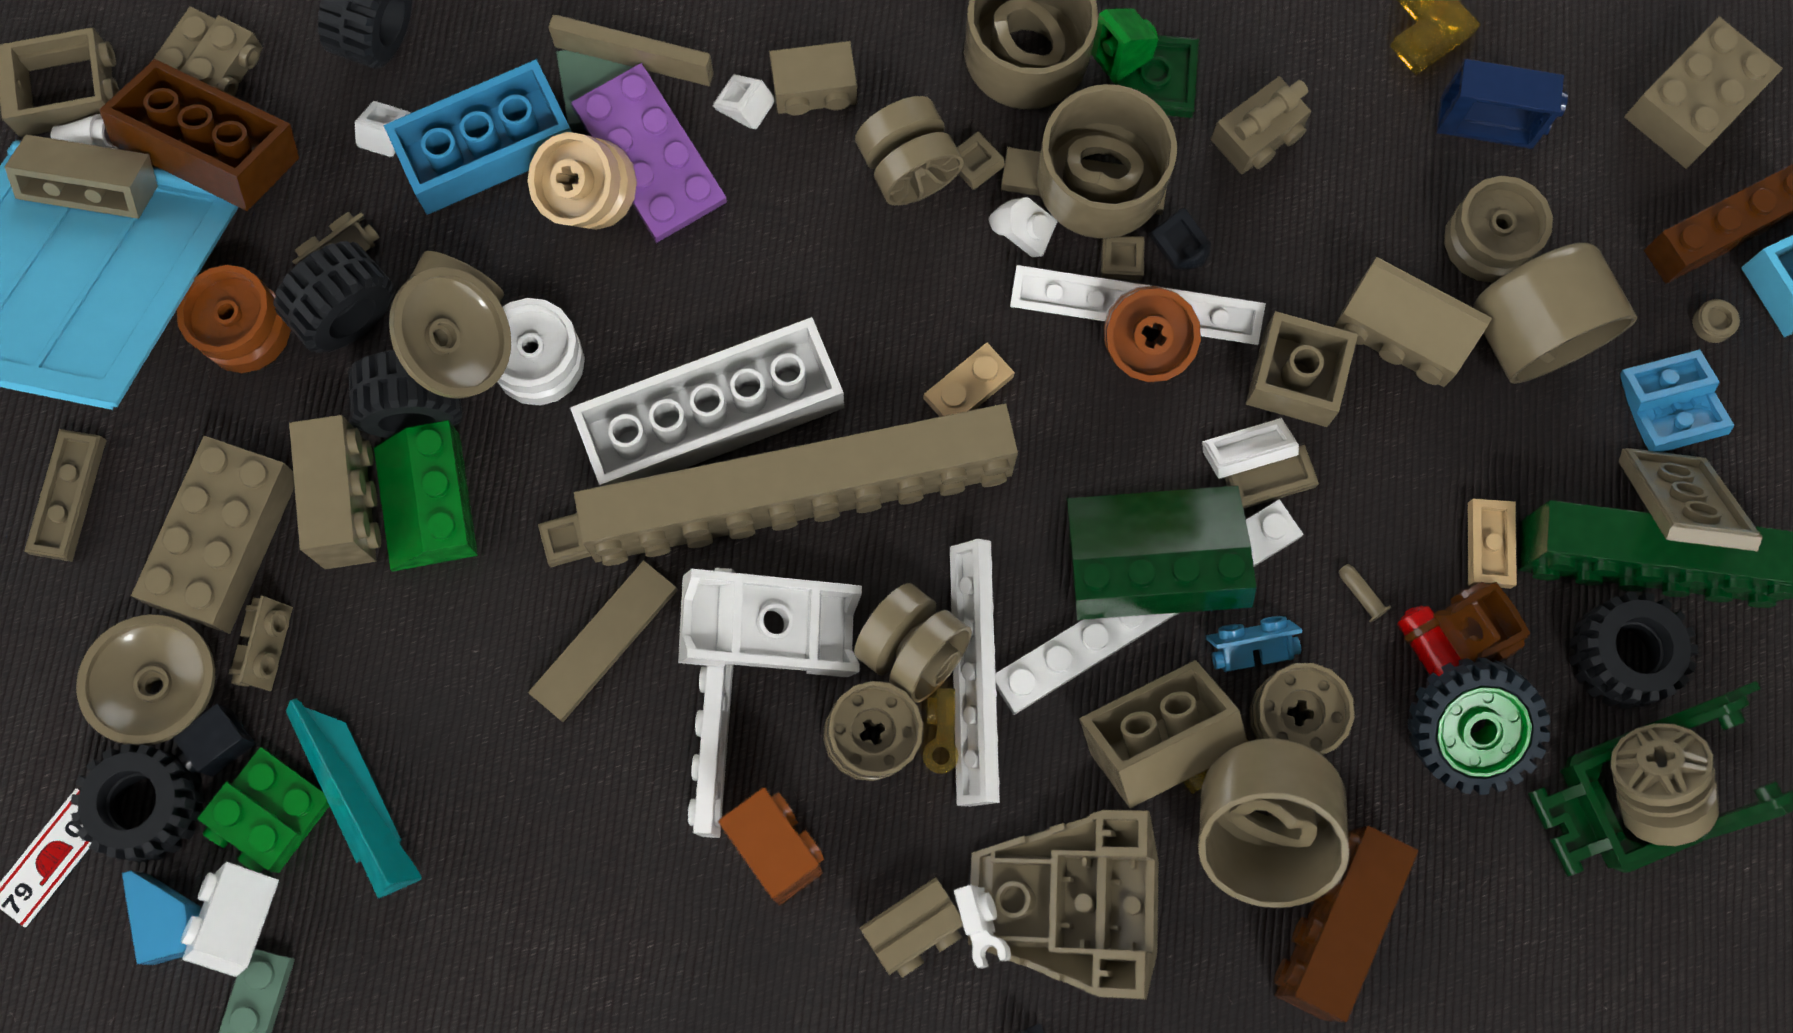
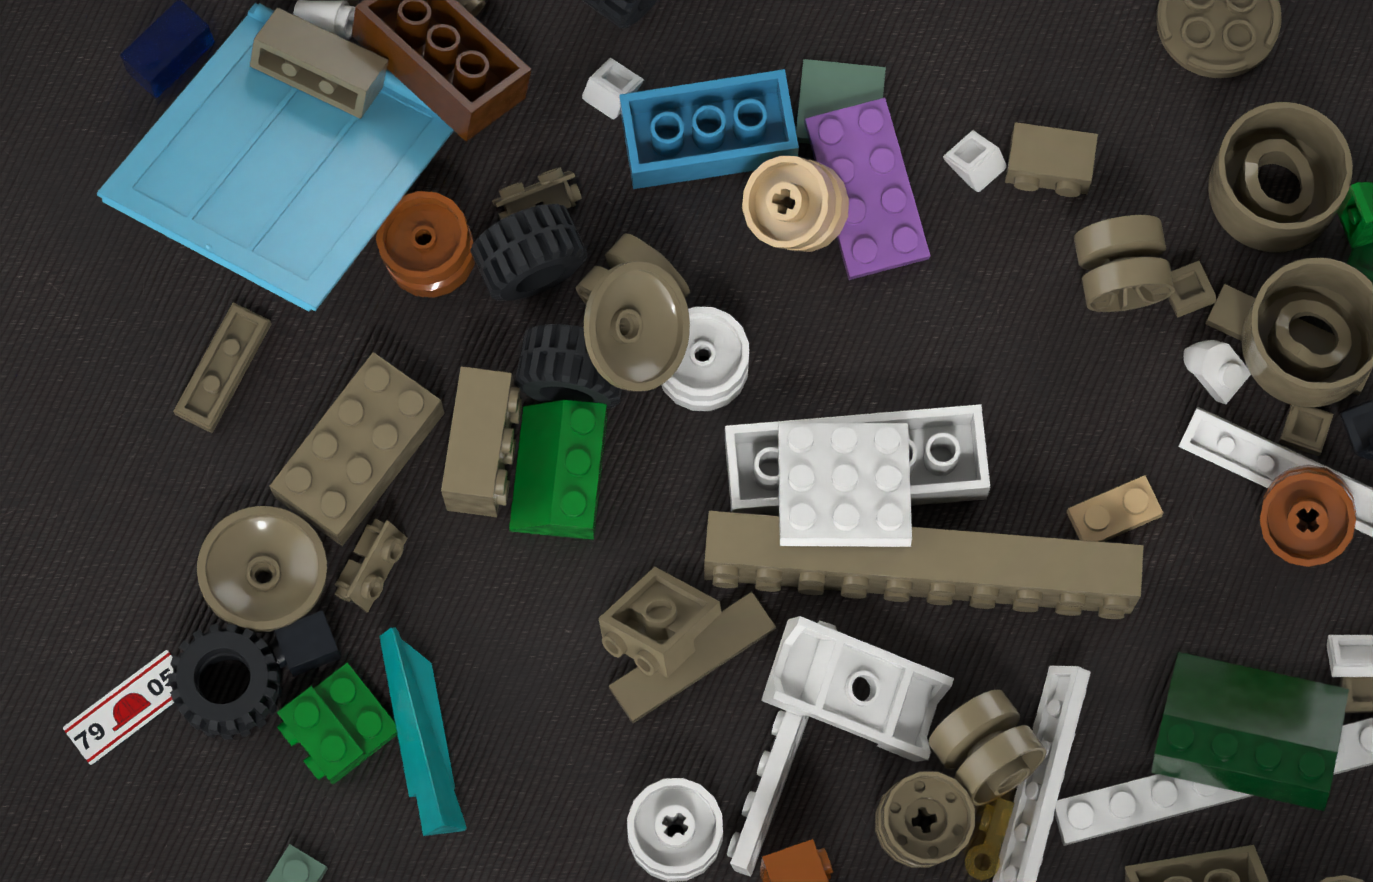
camera: 20 degrees right, 0 degrees up
(156, 918) = (222, 799): dark azure slope -> none
(229, 919) = (285, 813): white brick -> none
(557, 617) = (657, 622): none -> dark tan plate
(562, 540) = (681, 549): dark tan tile -> none
(609, 798) = (675, 803): none -> white wheel
(631, 49) = (879, 82): dark tan tile -> none
(700, 429) = (844, 484): none -> white plate
(1237, 643) = (1301, 841): dark azure hinge -> none

